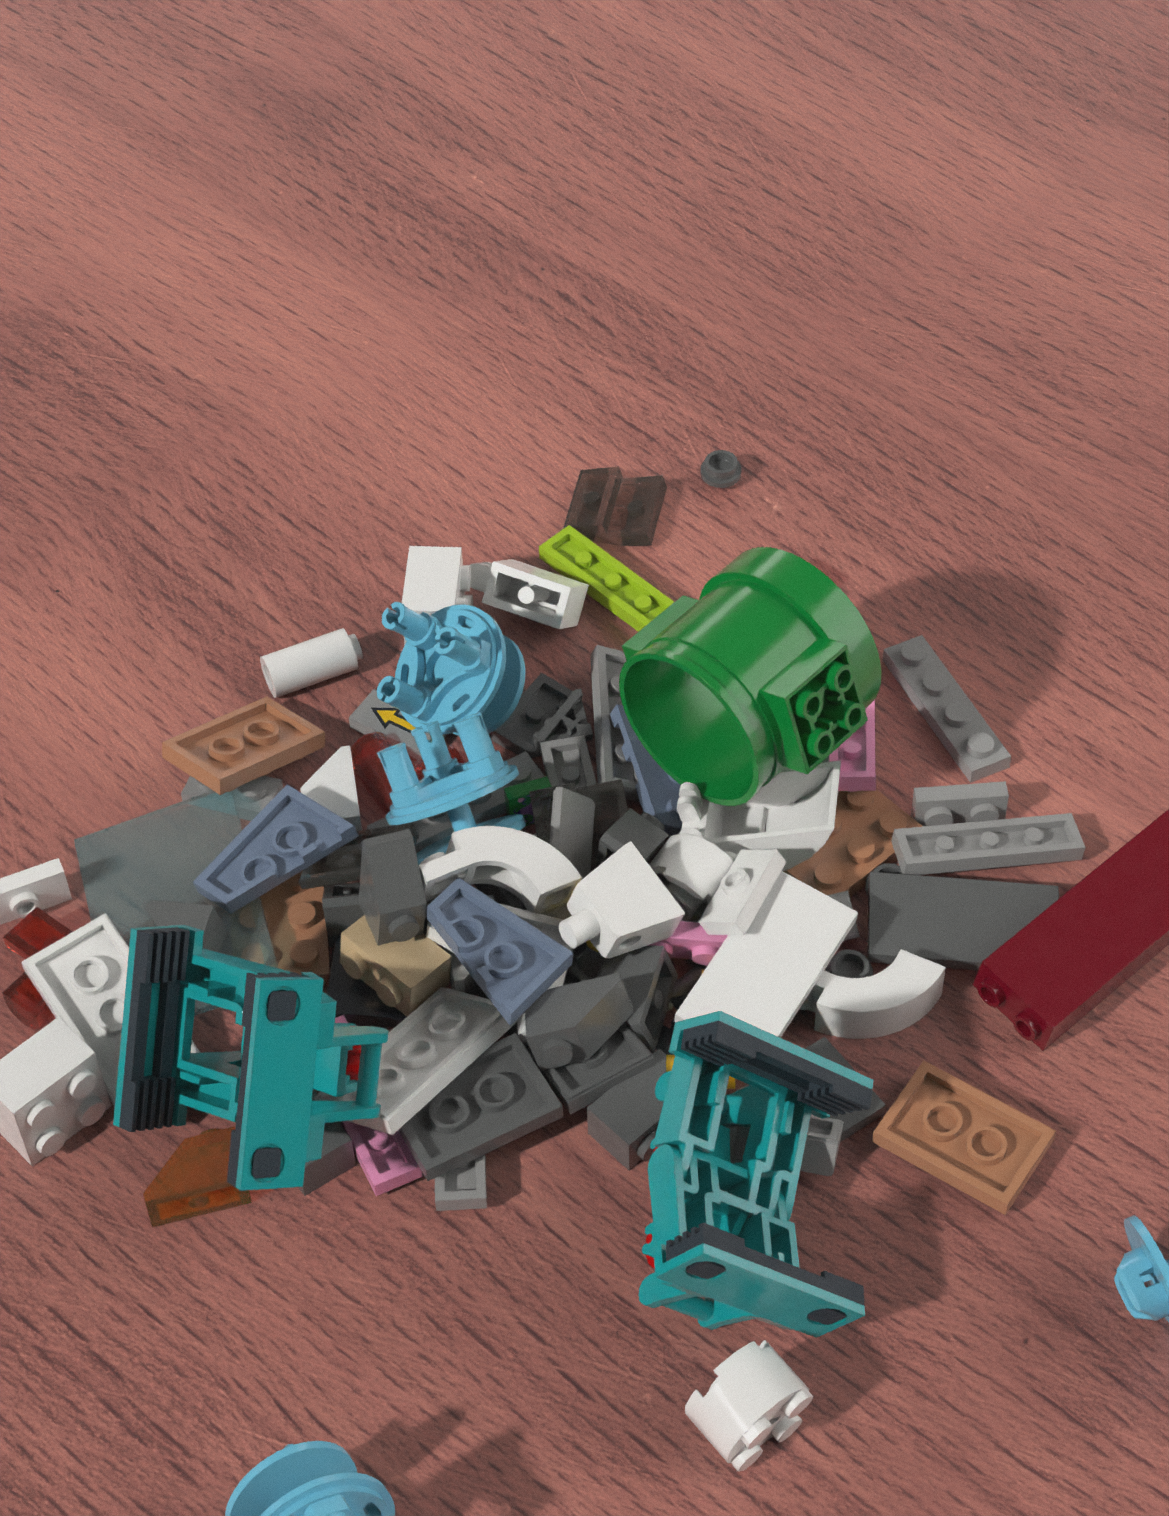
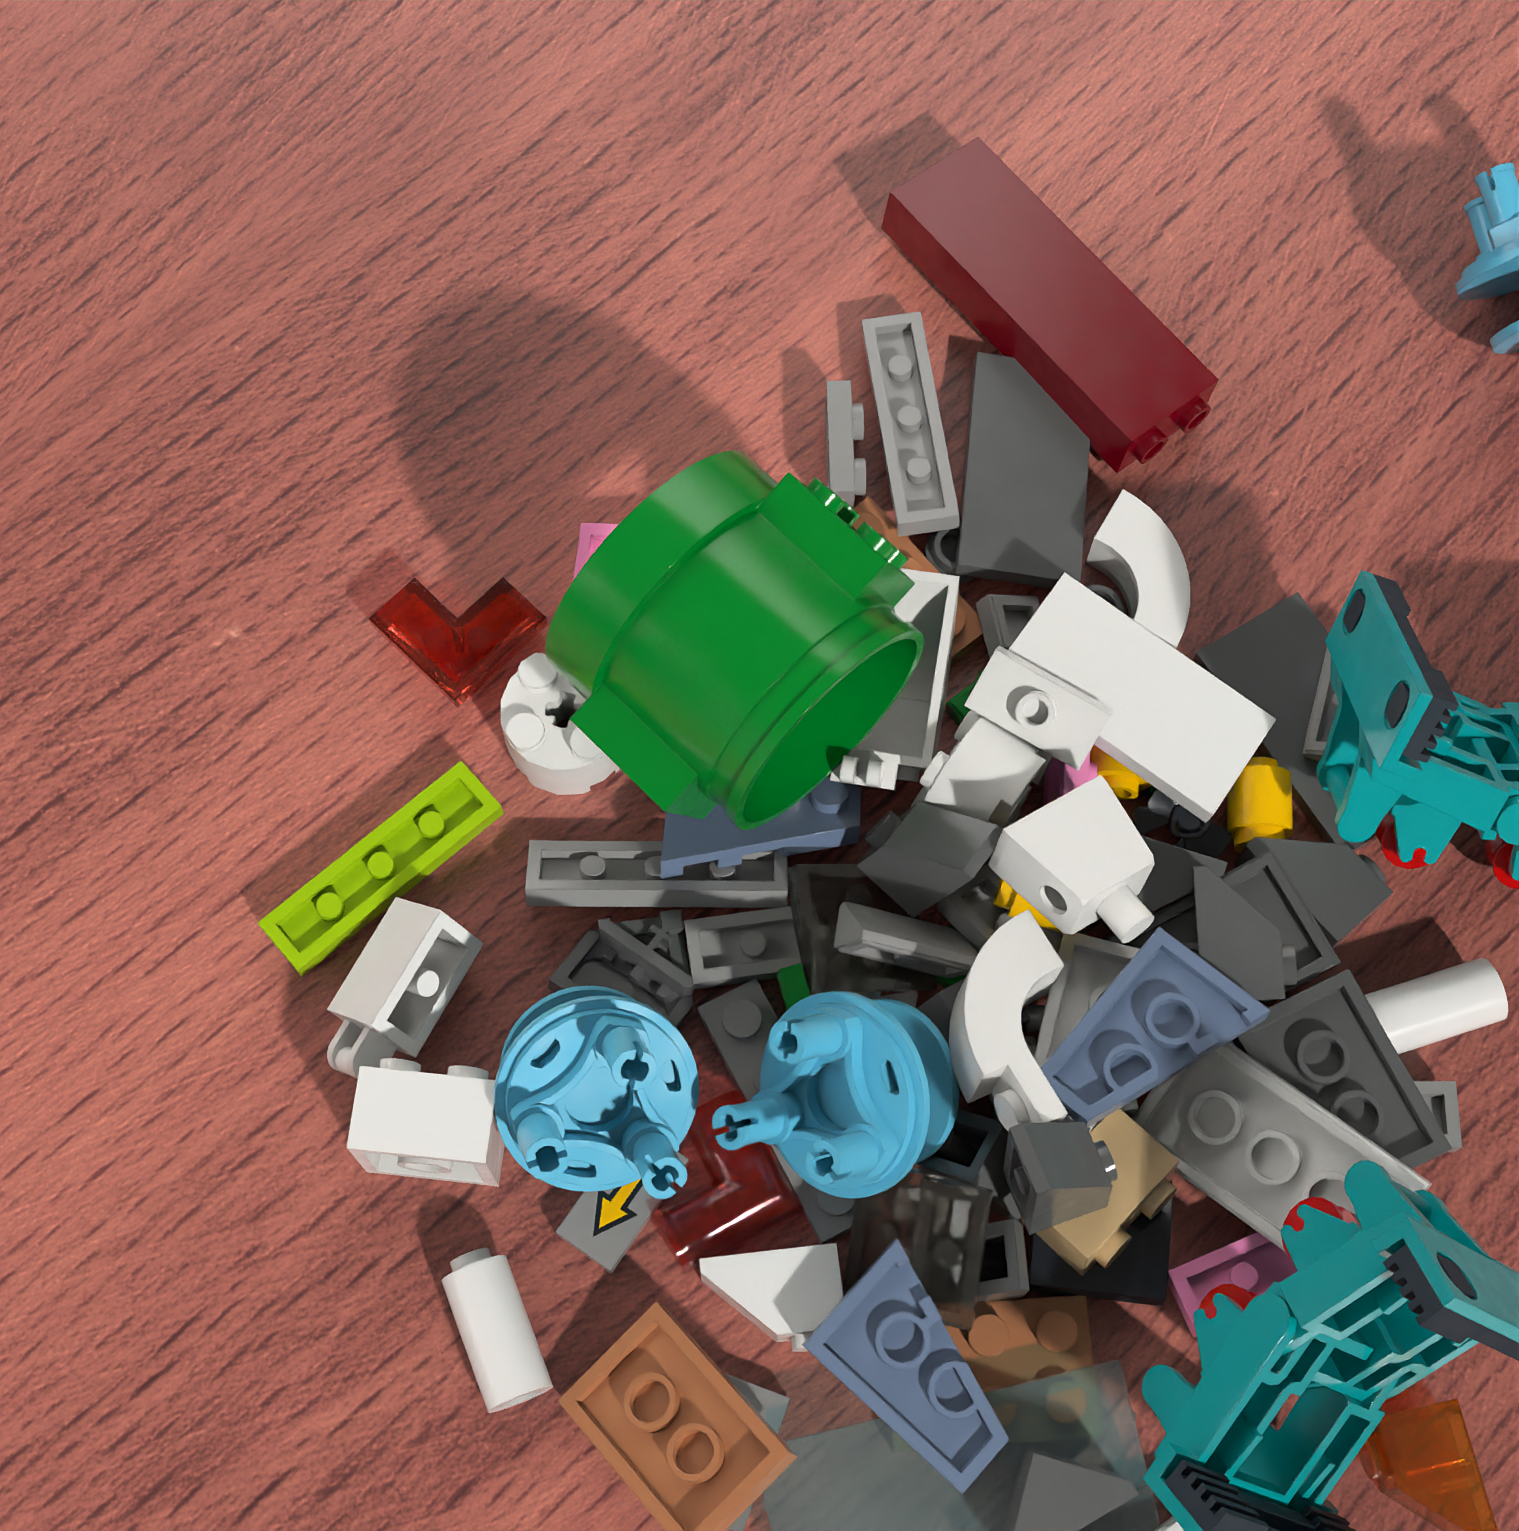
camera: 90 degrees left, 20 degrees up
(544, 1187) = (1440, 1004): none -> white brick
(615, 507) = (211, 858): clear smoke slope -> none
(720, 469) = (159, 698): dark grey plate -> none
(946, 709) = (651, 449): light grey plate -> none
(964, 1137) = (1341, 509): nougat plate -> none

